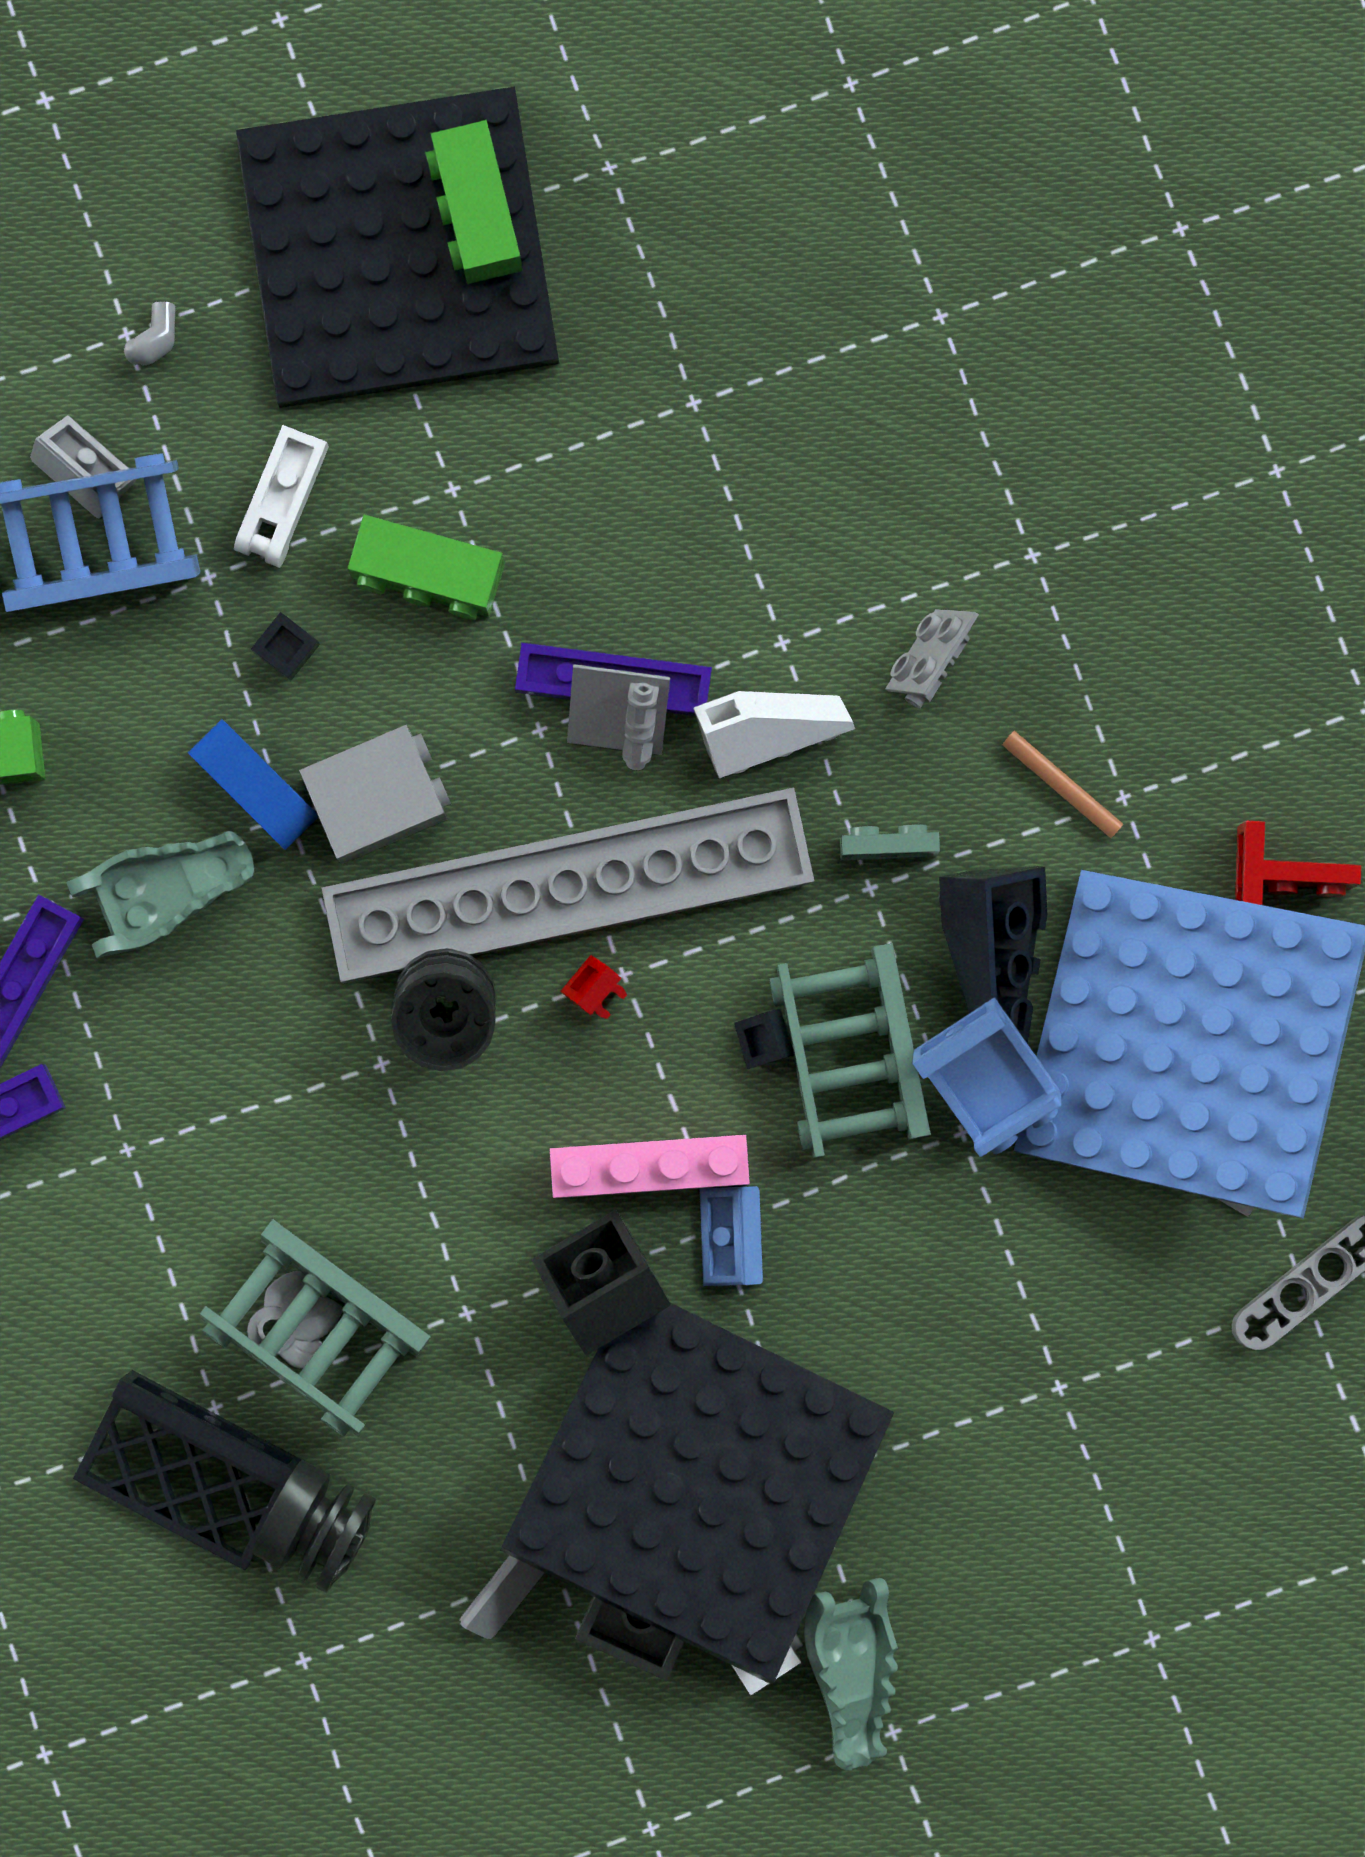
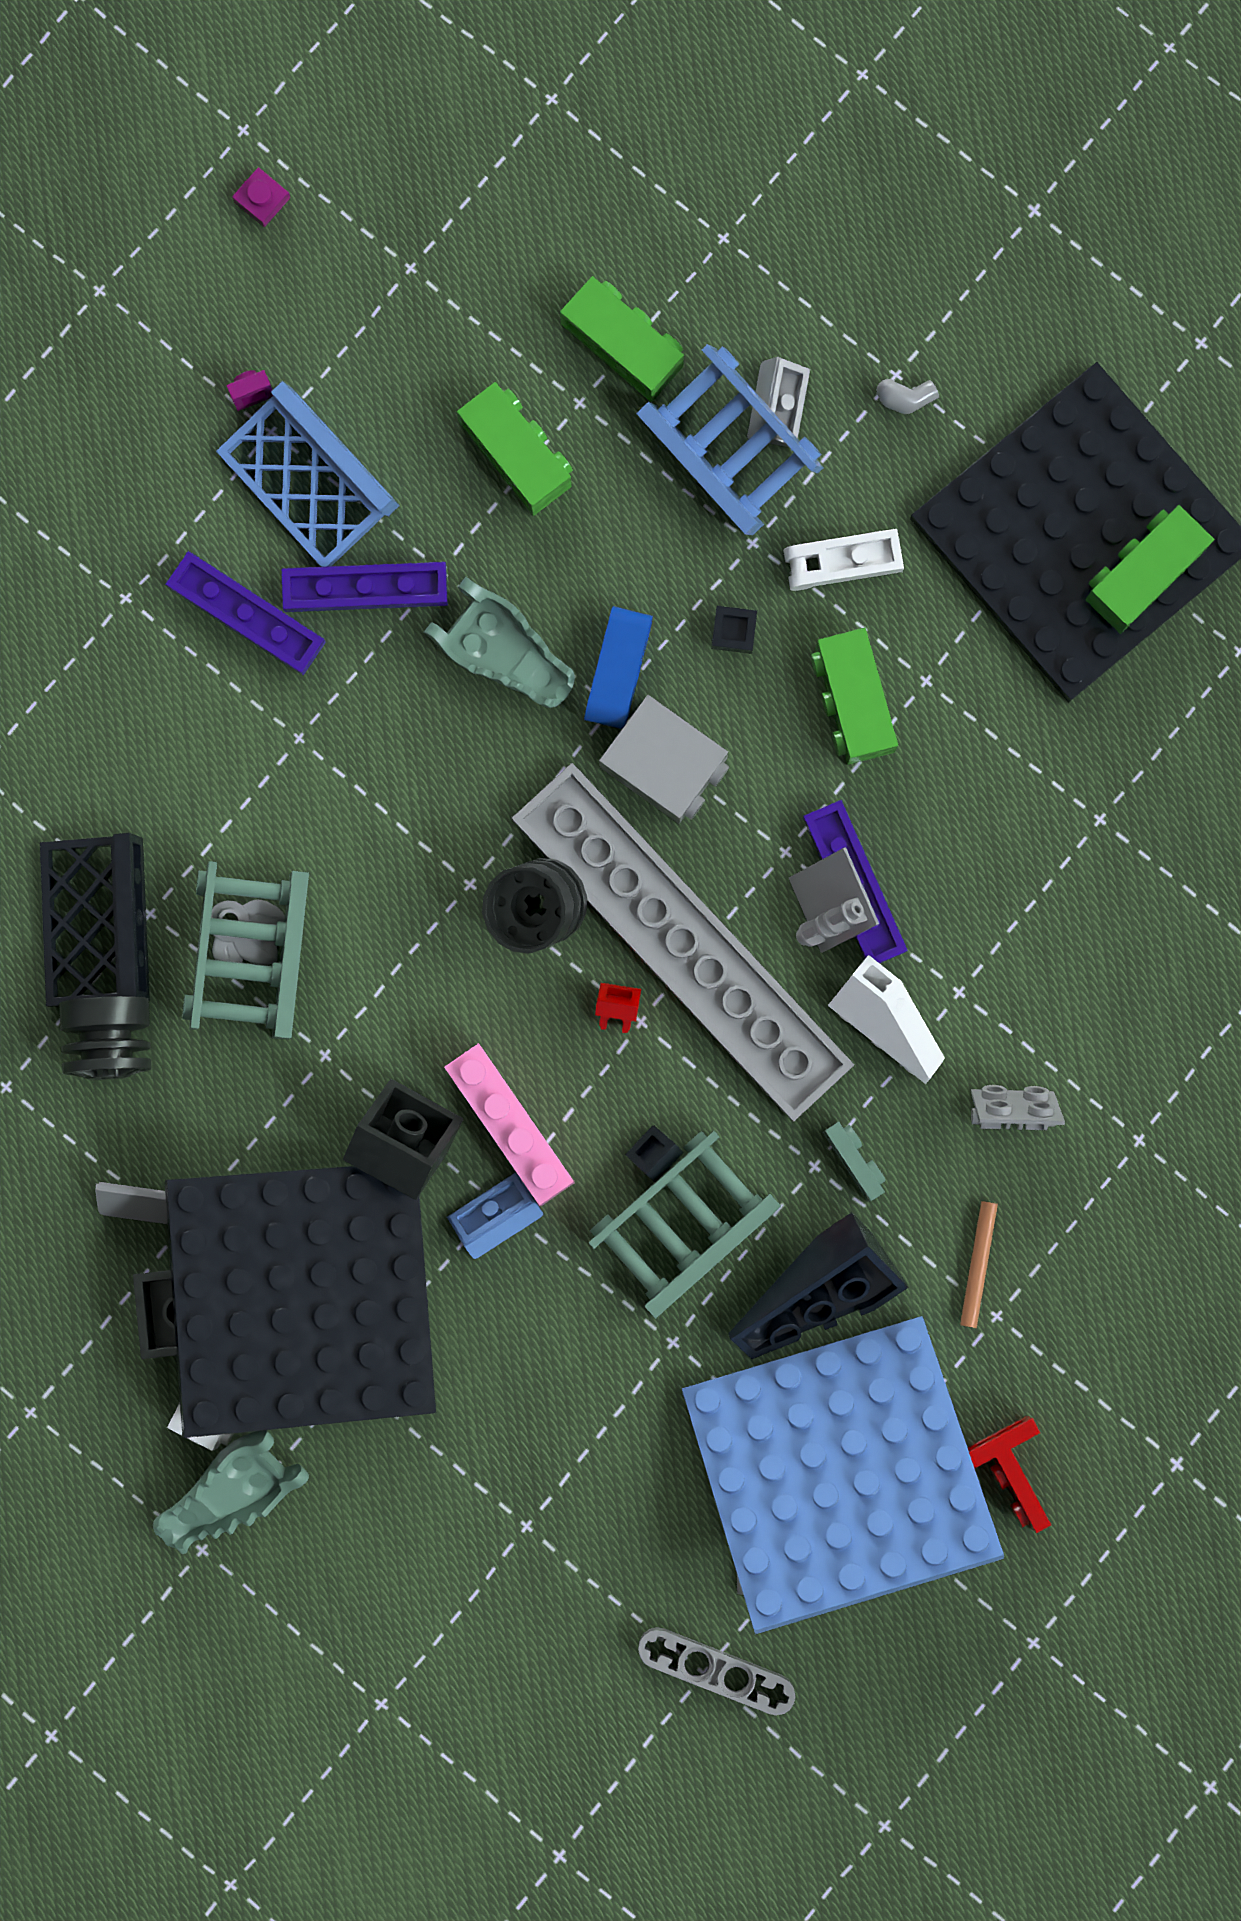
camera: 60 degrees right, 0 degrees up
(989, 1078) = (723, 1337): medium blue panel -> none

